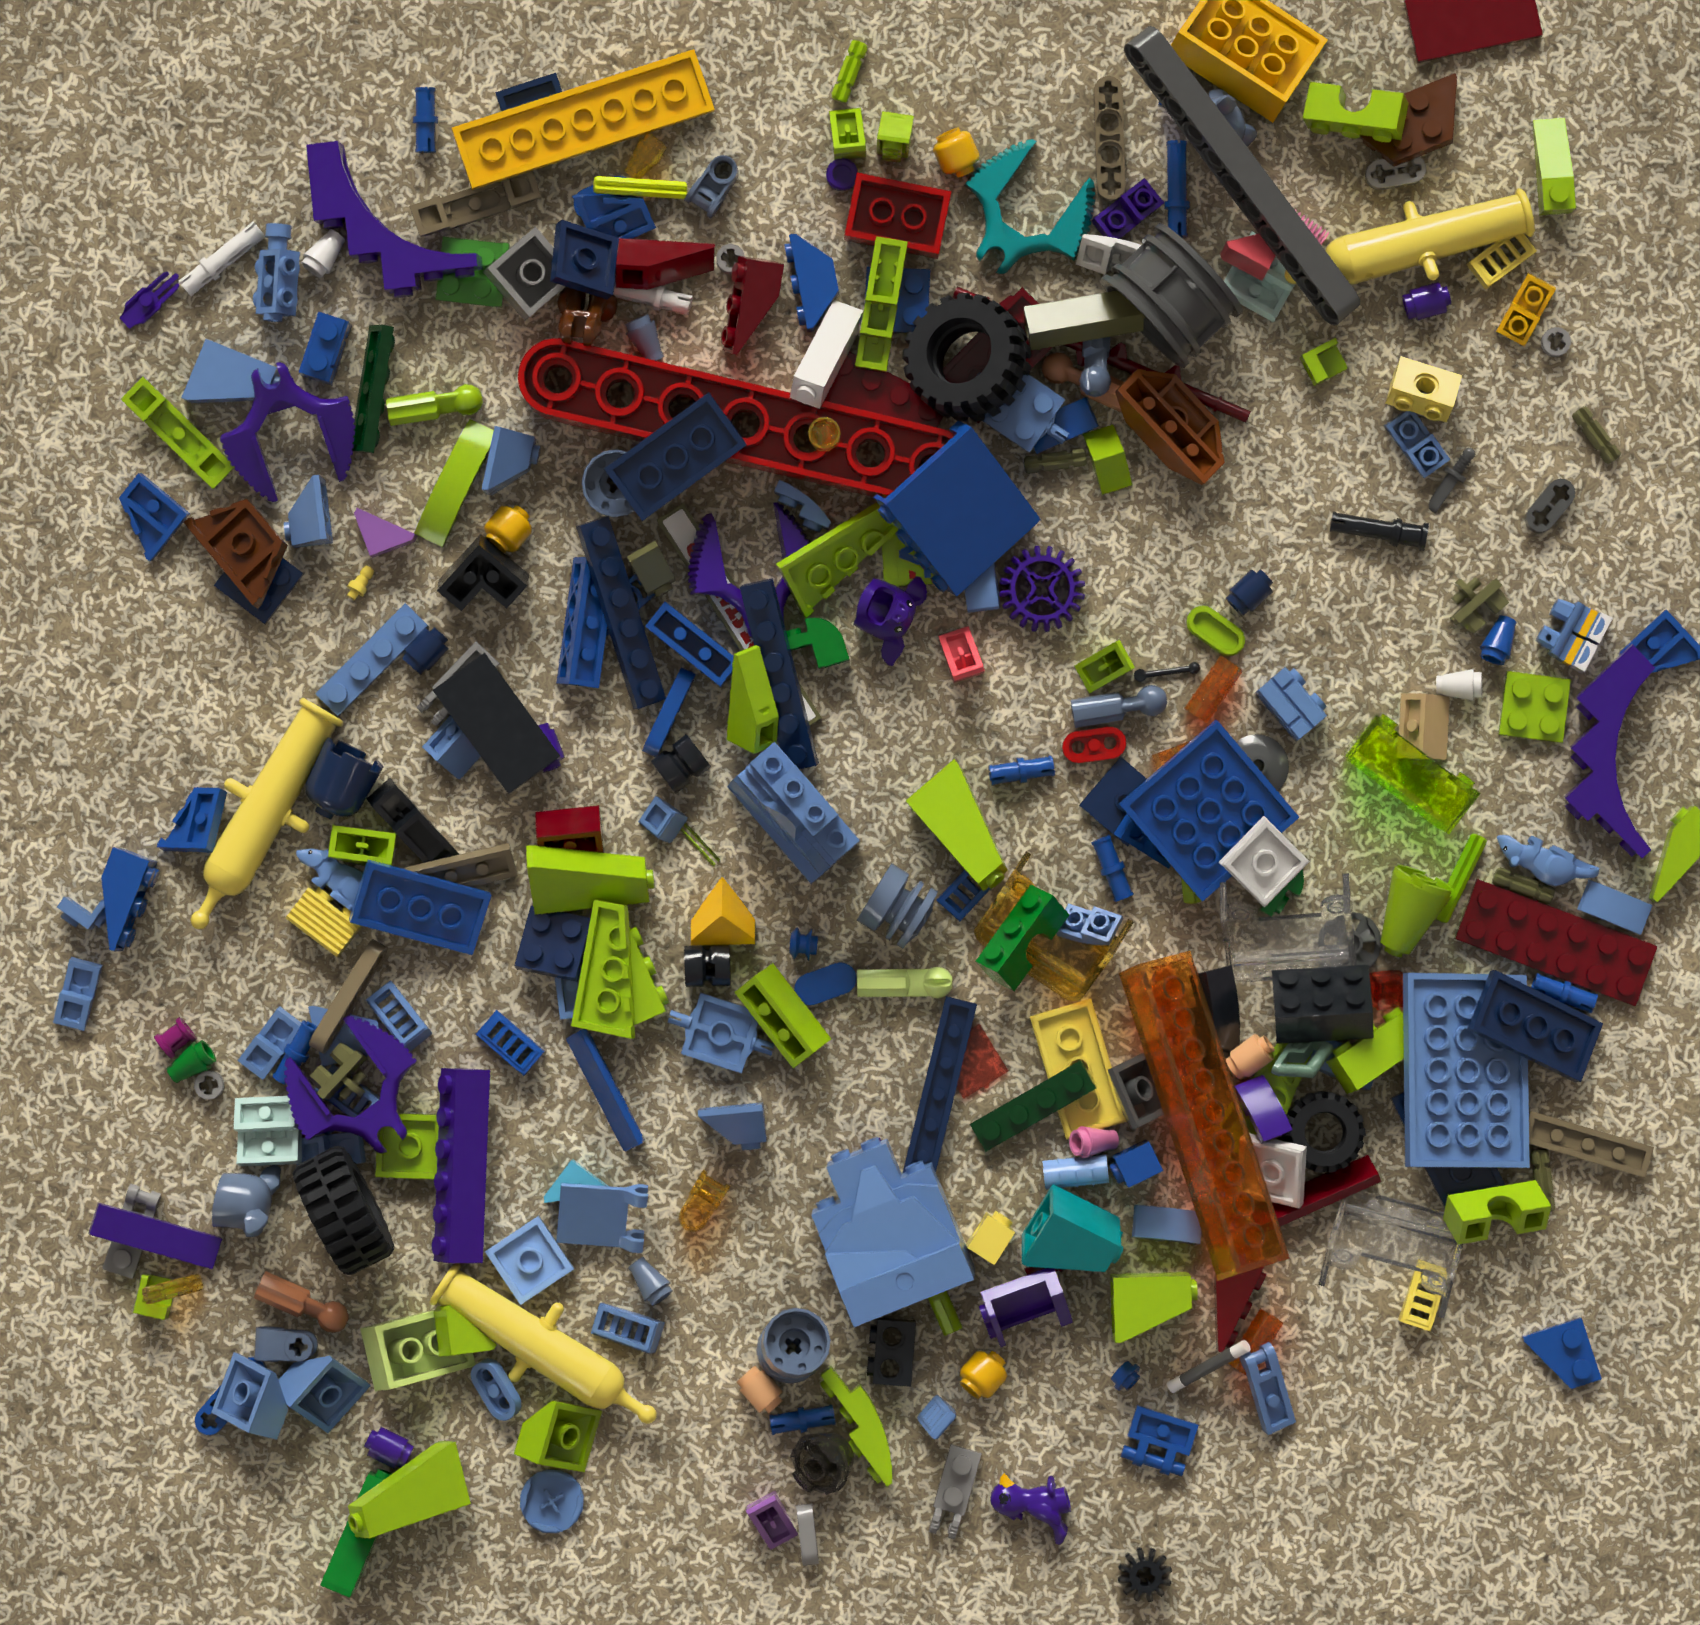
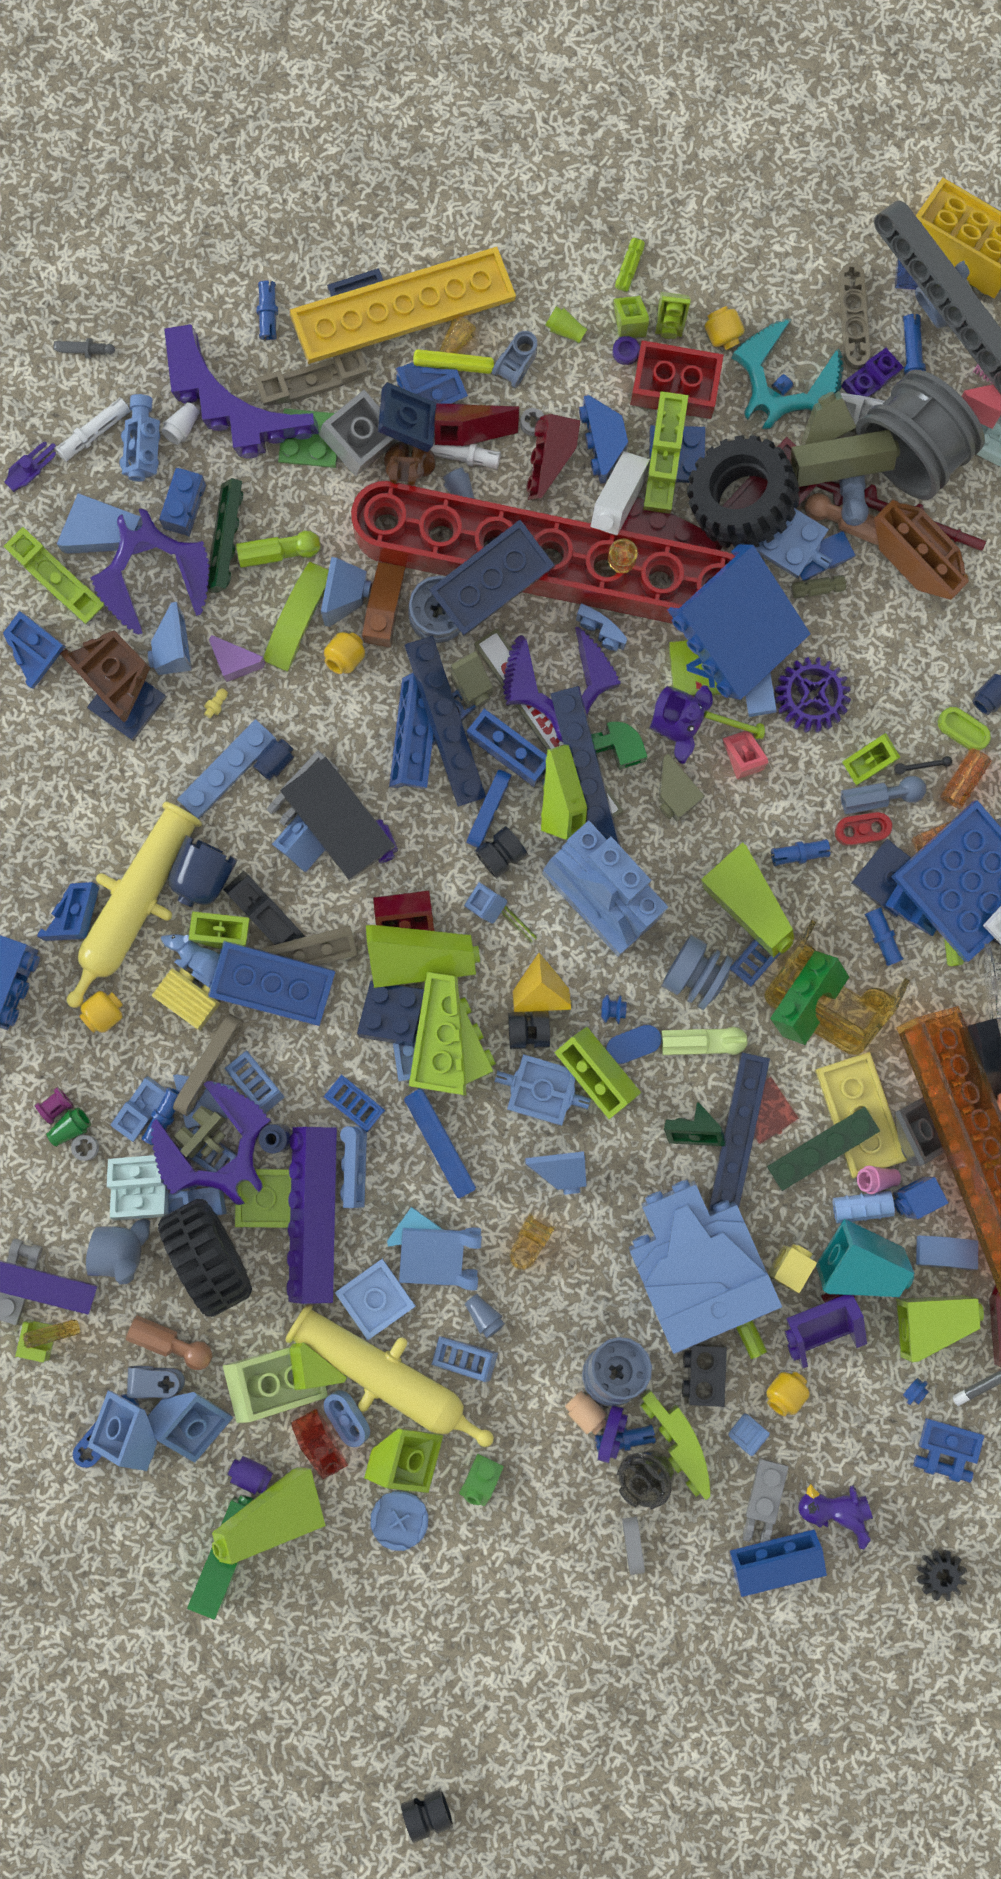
camera: 10 degrees left, 5 degrees down
(215, 159) = (87, 348): none -> dark grey piece
(229, 934) = (101, 1011): none -> yellow head
(430, 1076) = (282, 1134): none -> dark blue brick
(464, 1416) = (318, 1444): none -> clear red slope
(482, 568) = (326, 685): black brick -> none
(509, 1114) = (354, 1167): none -> medium blue plate
(554, 471) = (383, 605): none -> dark orange slope
(642, 1460) = (481, 1480): none -> bright green bracket
(771, 144) = (565, 325): none -> lime cone
(771, 1520) = (599, 1532): medium lavender slope -> none
(782, 1423) = (609, 1446): none -> dark purple plate
(824, 562) = (626, 671): lime wing -> none
(882, 697) = (676, 790): none -> olive slope
(895, 1084) = (701, 1131): none -> dark green slope
(964, 1556) = (778, 1563): none -> blue brick
(979, 628) = (758, 730): none -> lime piece
(1022, 220) = (783, 384): none -> blue hand
(1071, 270) = (828, 419): none -> olive slope
(1090, 927) = (871, 987): medium blue slope -> none
(1108, 459) = (865, 584): lime slope -> none

